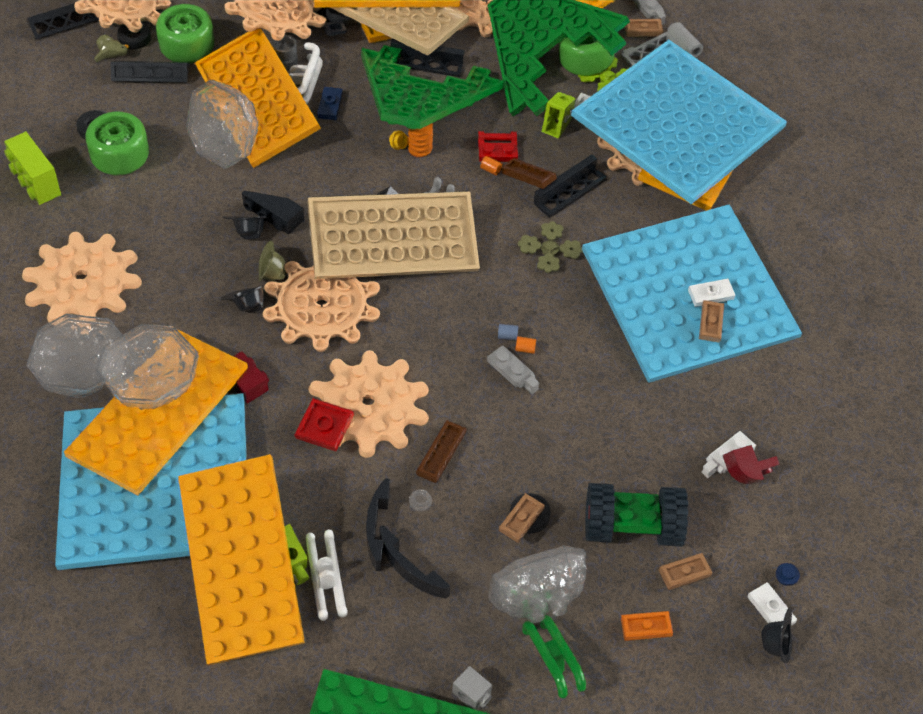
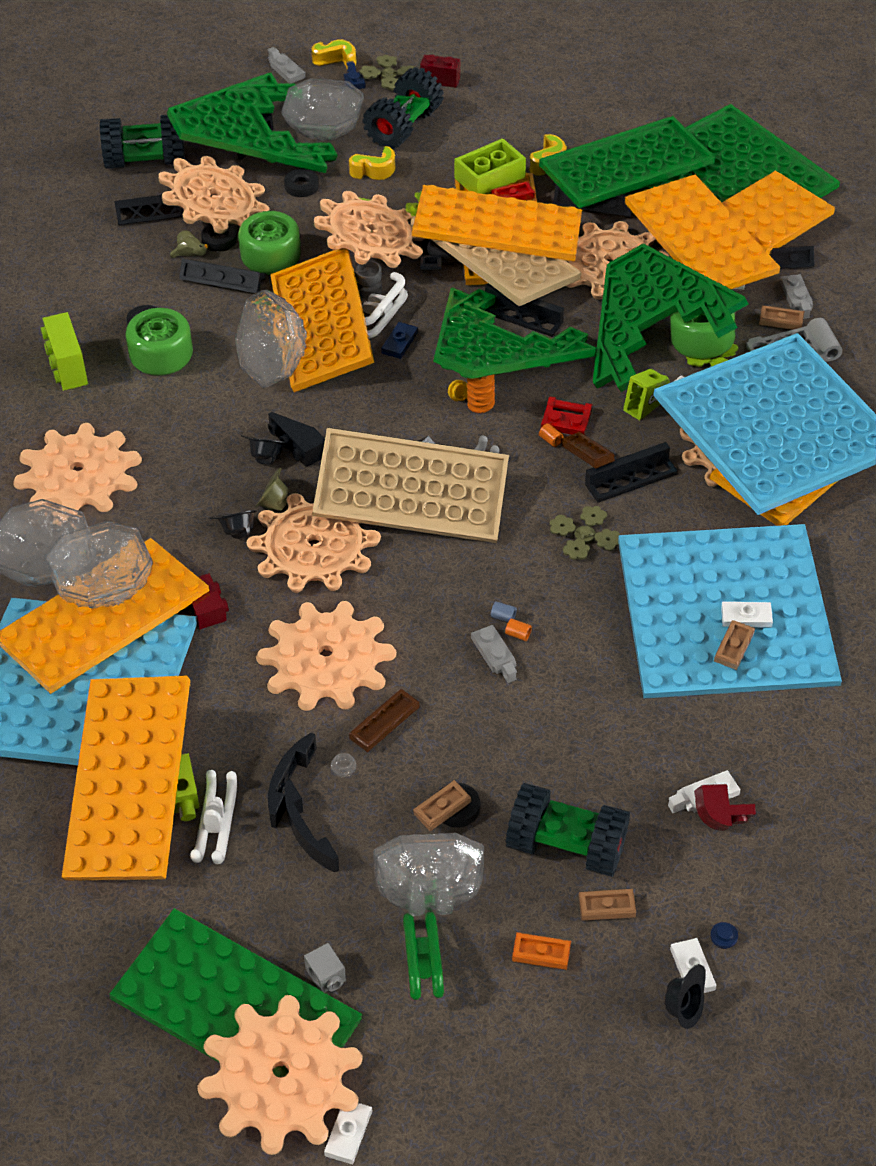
camera: 20 degrees right, 5 degrees down
(324, 424) = (268, 665): red plate -> none

